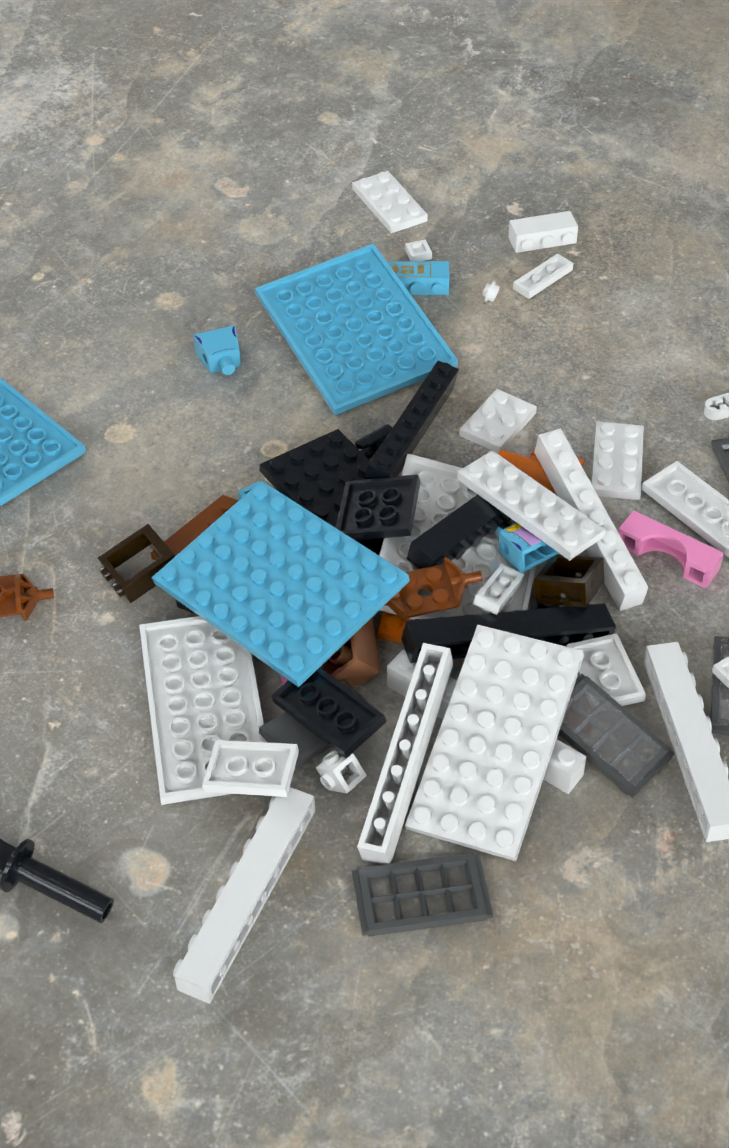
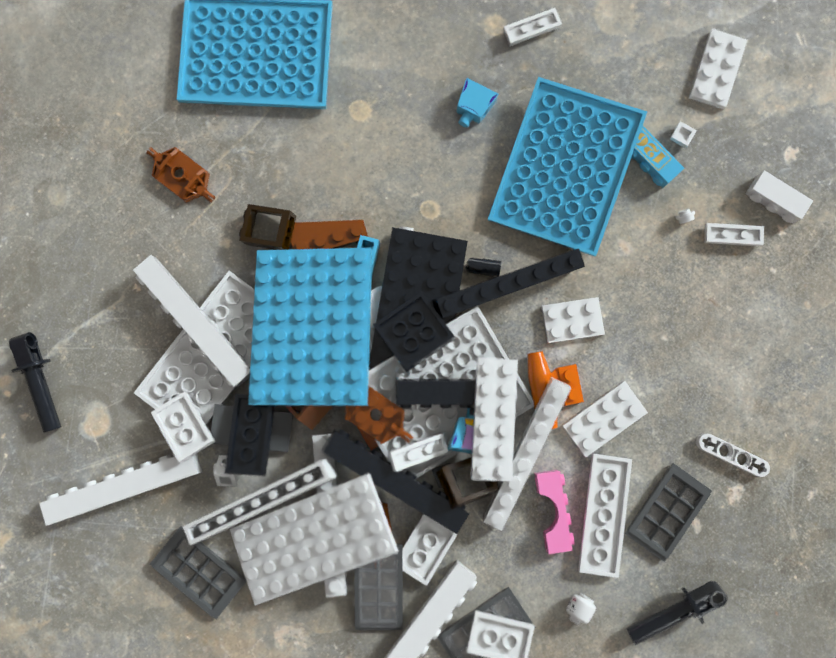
camera: 45 degrees right, 35 degrees up
(155, 680) = (193, 320): none -> white brick
(205, 276) = (532, 26): none -> white plate

